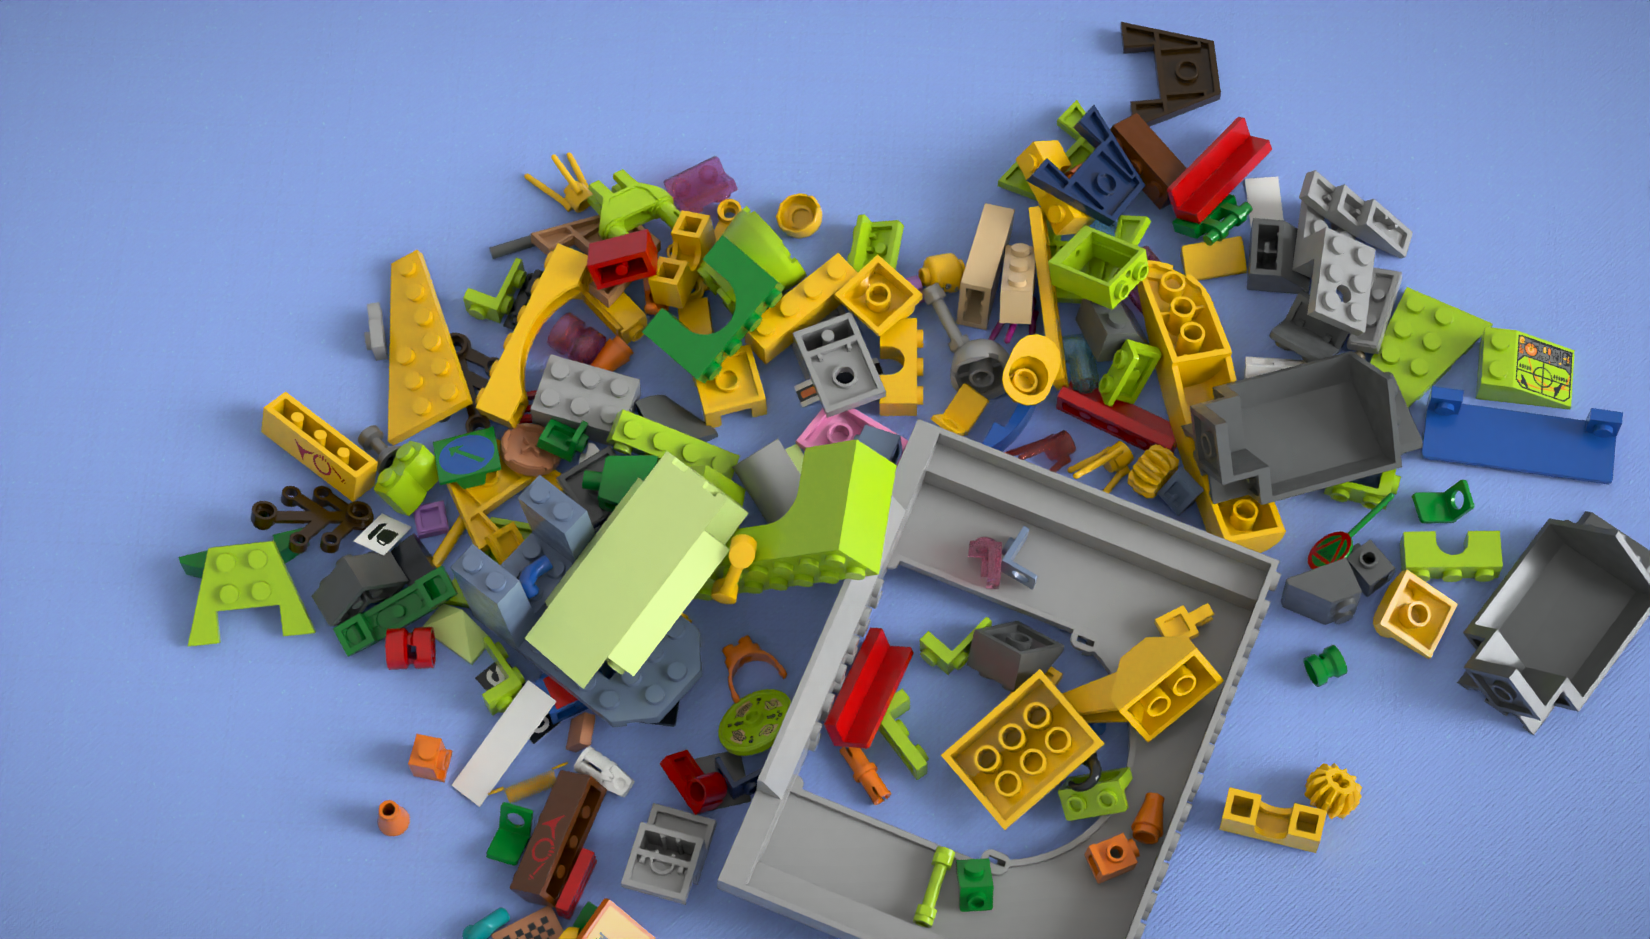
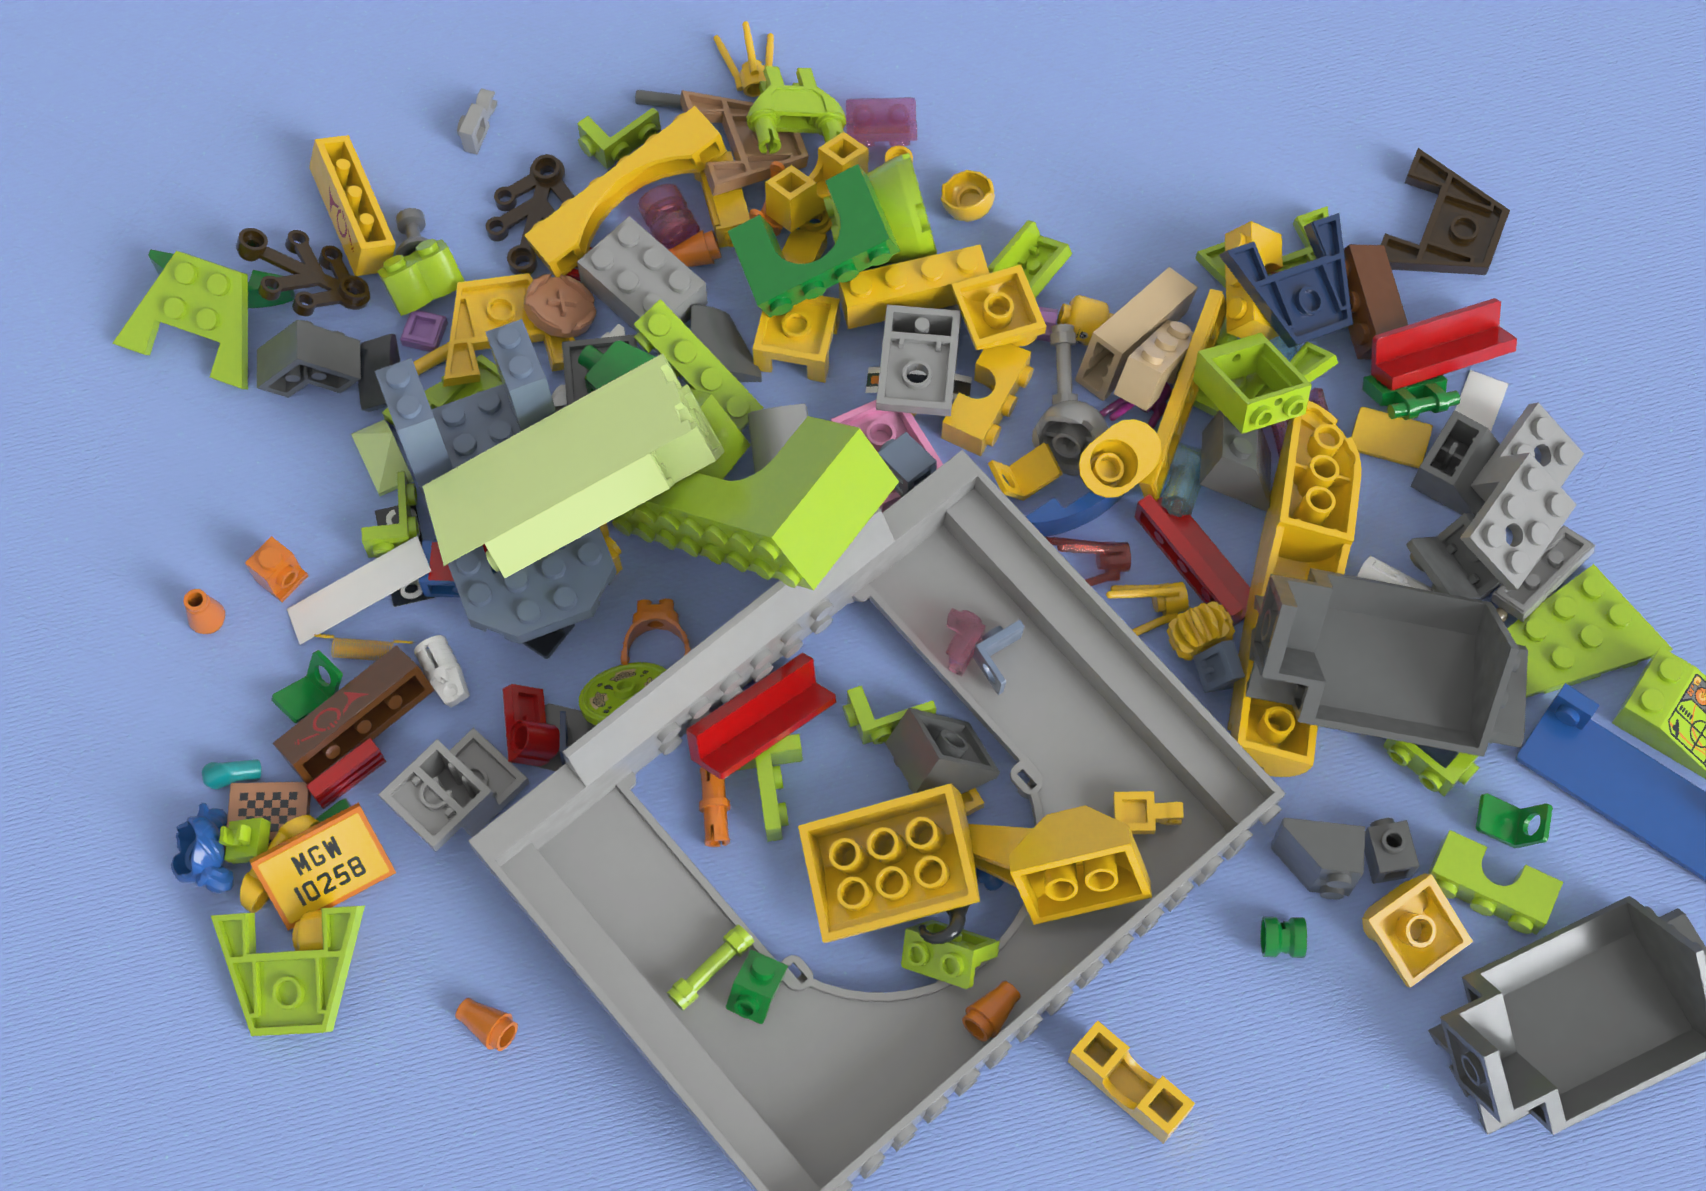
camera: 25 degrees right, 0 degrees up
(382, 534) = (363, 321): white sticker -> none
(396, 612) = (323, 406): green slope -> none
(399, 644) = (320, 447): red wheel -> none
(423, 363) = (505, 171): yellow wing -> none
(467, 458) = (487, 282): piece -> none
(504, 541) = (474, 380): yellow tile -> none
(530, 574) = (469, 423): blue arm -> none
(563, 440) = (594, 308): green bracket -> none
(580, 732) = (443, 617): nougat tile -> none
(622, 259) = (750, 149): red brick -> none
(741, 556) = (676, 501): yellow bar -> none
(1107, 867) = (912, 1041): orange brick -> none
(1128, 372) = (1229, 512): lime bracket -> none
(1333, 790) = (1217, 1083): yellow gear -> none
(1340, 544) = (1370, 809): green piece -> none
(1358, 217) = (1578, 467): light grey slope -> none

